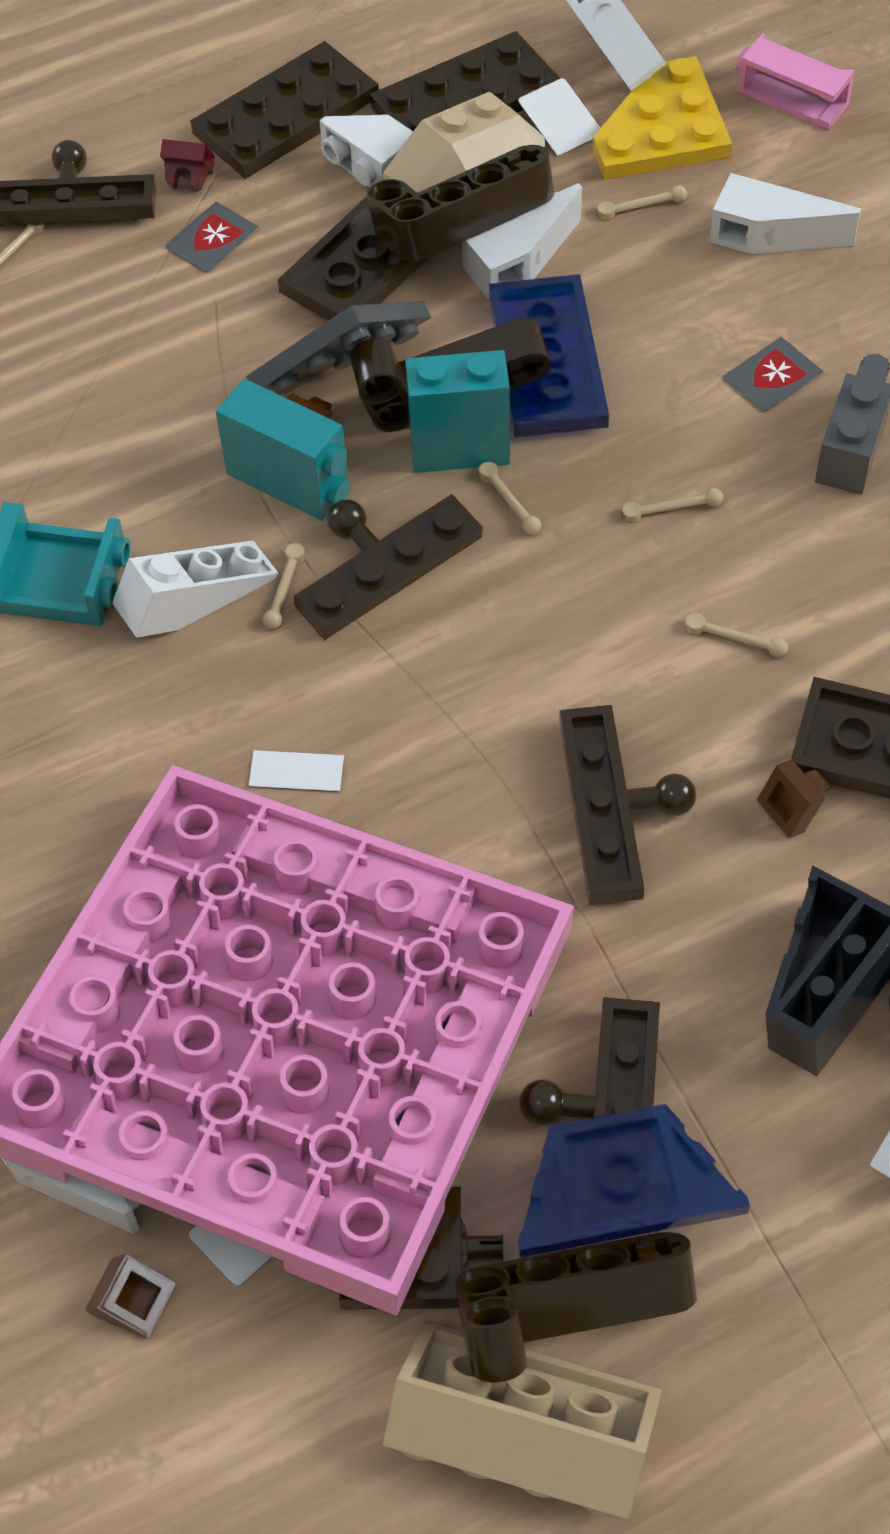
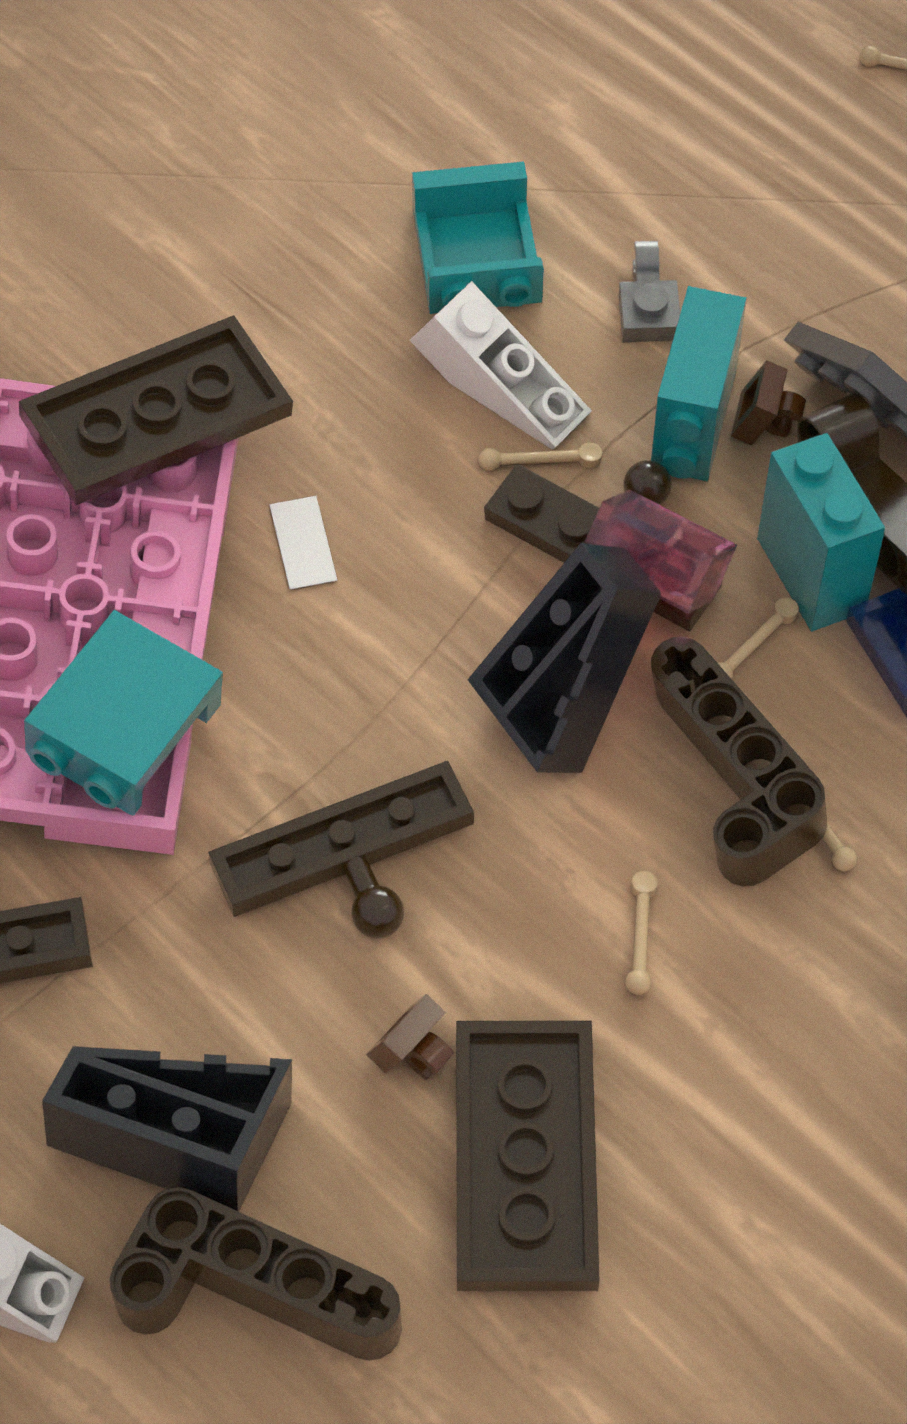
camera: 70 degrees right, 0 degrees up
(160, 817) = (155, 409): none -> dark brown plate
(168, 475) = (648, 305): none -> flat silver plate
(437, 521) = (673, 551): none -> clear pink brick
(471, 902) = (120, 711): none -> teal panel
(514, 593) = (568, 656): none -> black wedge
(615, 533) = (728, 749): none -> dark brown beam

